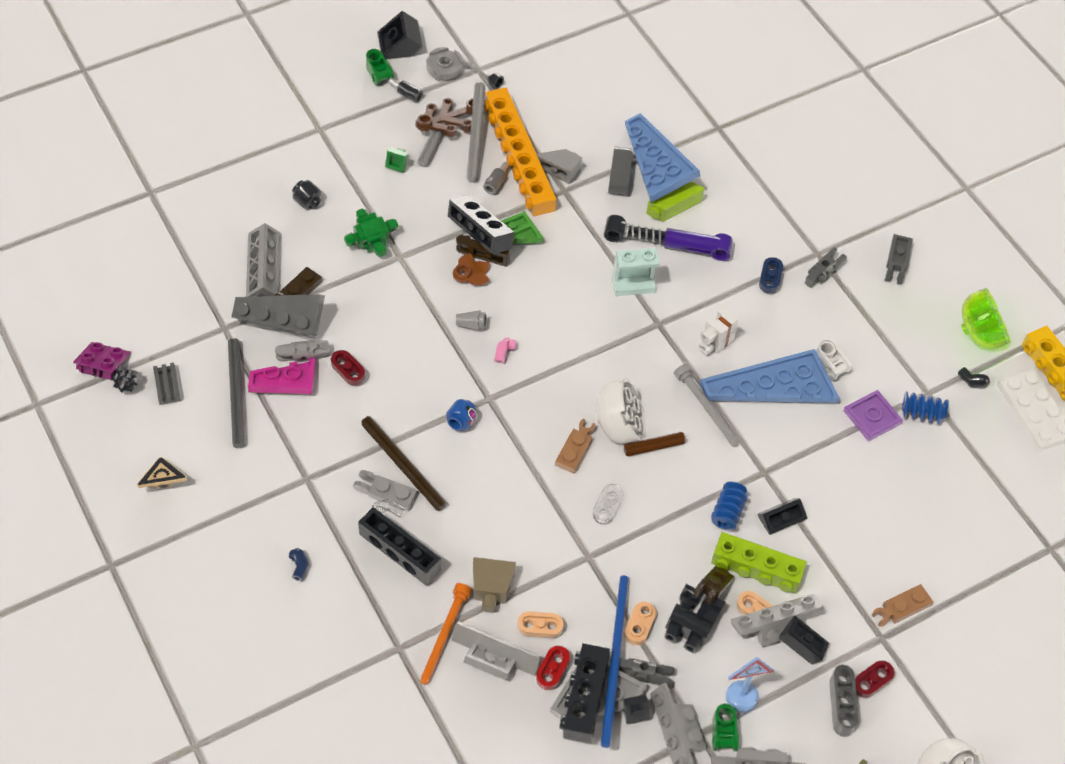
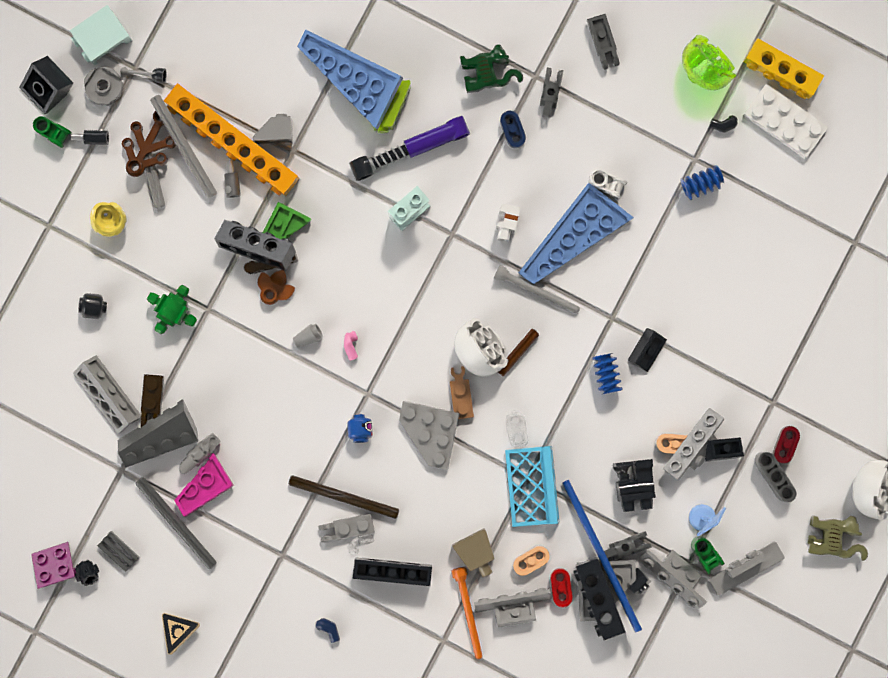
camera: 30 degrees left, 30 degrees up
(349, 368) = (244, 445): dark red plate -> none
(371, 135) = (112, 223): none -> light yellow piece
(396, 159) = (138, 218): green tile -> none
(469, 29) = (99, 34): none -> light aqua panel
(525, 458) = (431, 431): none -> light grey plate
(604, 572) = (549, 486): none -> medium azure fence
(620, 170) = (327, 103): dark grey beam -> none
(640, 621) = (598, 510): light nougat plate -> none
(714, 584) = (635, 449): dark brown hinge -> none
(758, 562) = (655, 405): lime brick -> none
(776, 216) = (485, 72): none -> dark green animal
(873, 415) = (665, 212): medium lavender tile -> none
(903, 605) = (775, 367): medium nougat plate -> none

